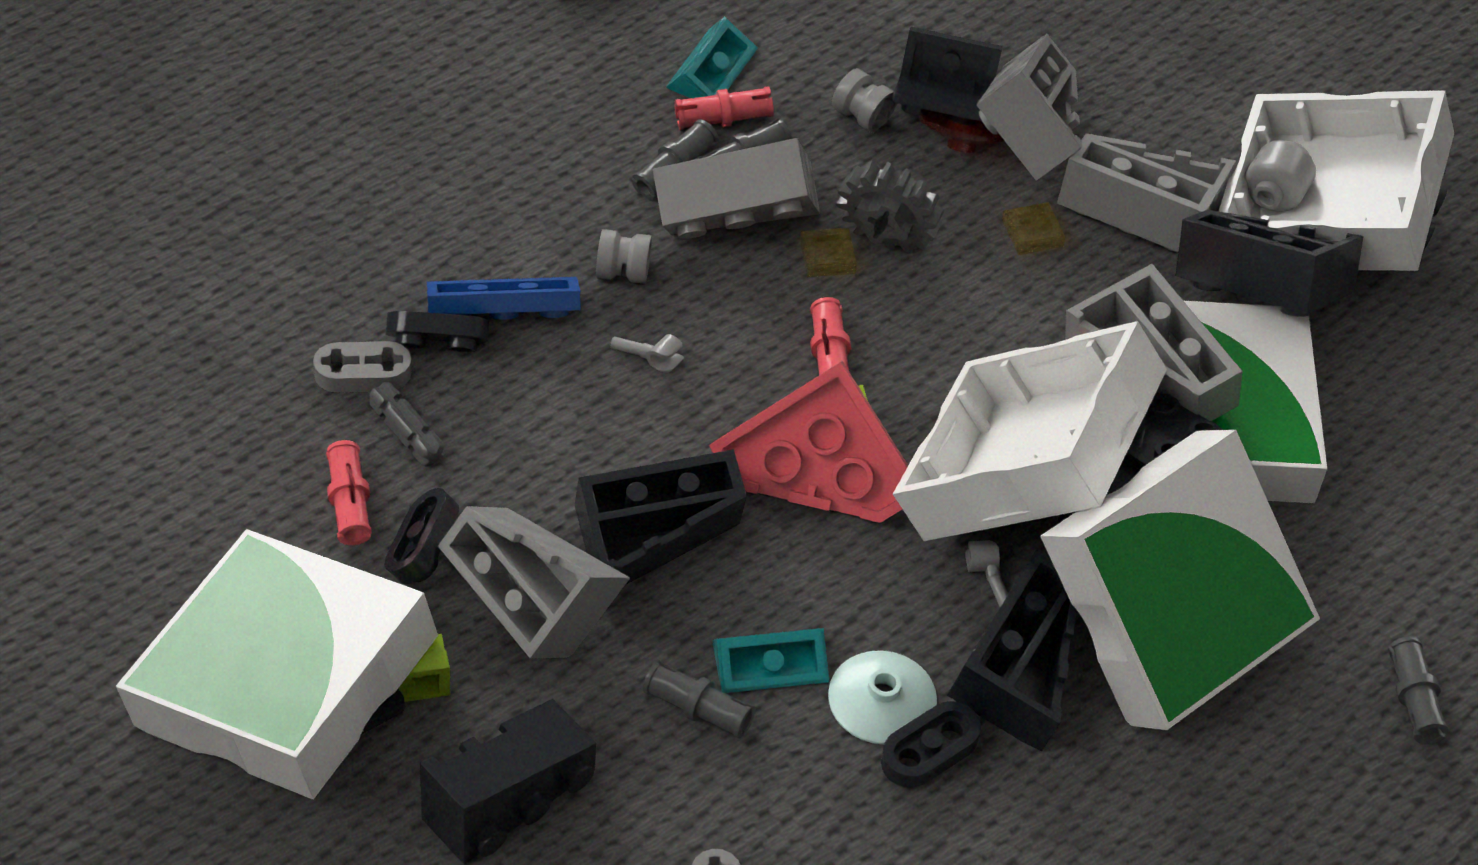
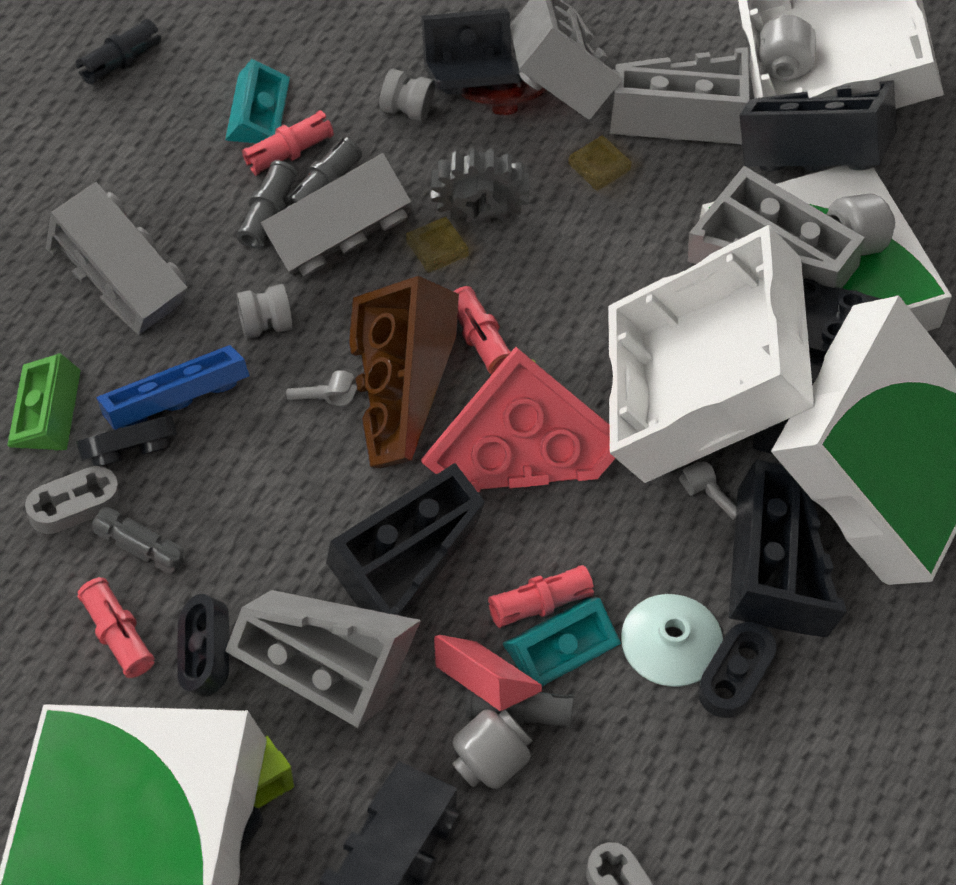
camera: 20 degrees left, 5 degrees up
(377, 273) = (45, 404): none -> bright green slope
(502, 158) = (115, 257): none -> light grey wedge
(650, 725) = (491, 749): none -> light grey head
(675, 652) = (483, 672): none -> coral slope
(747, 328) = (404, 348): none -> reddish brown wedge
(769, 609) = (541, 596): none -> coral pin
(1264, 362) = (867, 216): none -> light grey head

